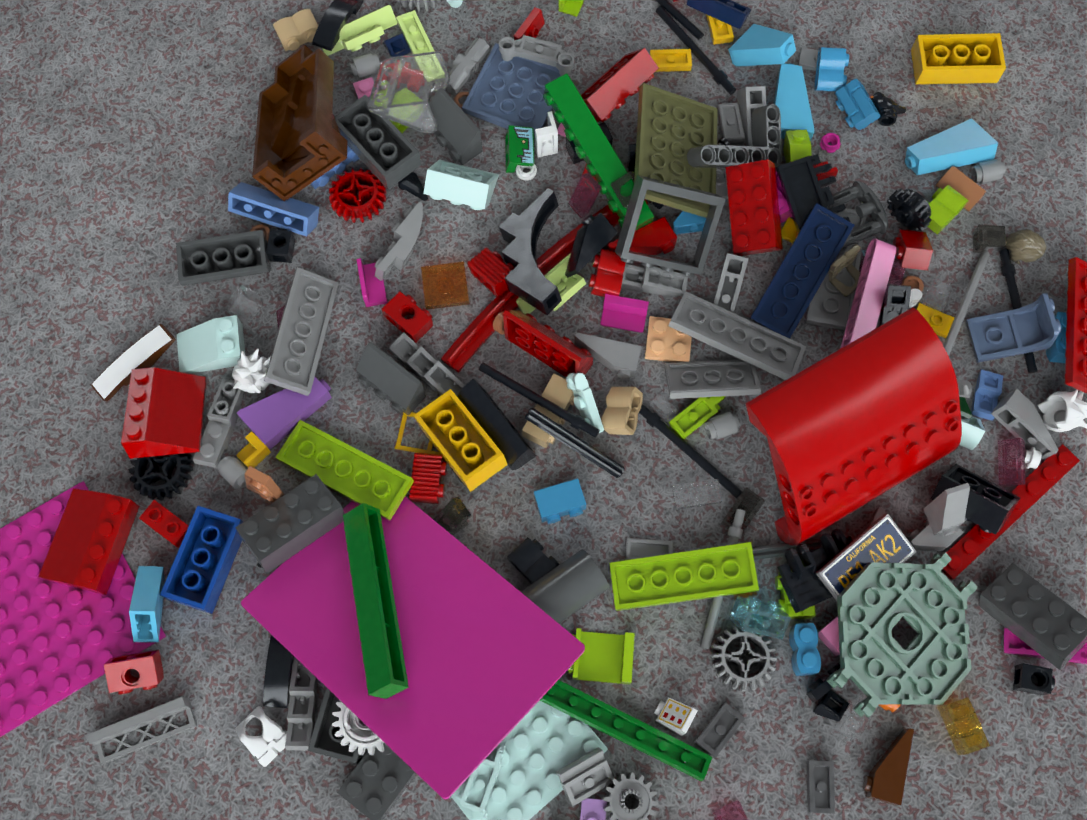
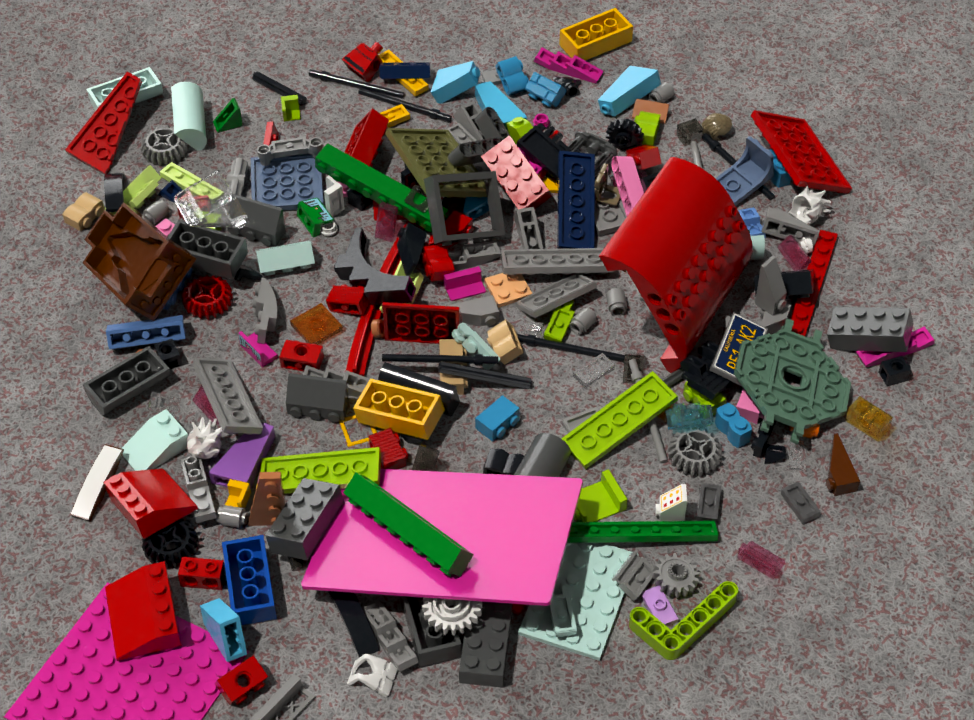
camera: 30 degrees left, 20 degrees down
(906, 86) = (569, 66): none -> dark pink slope

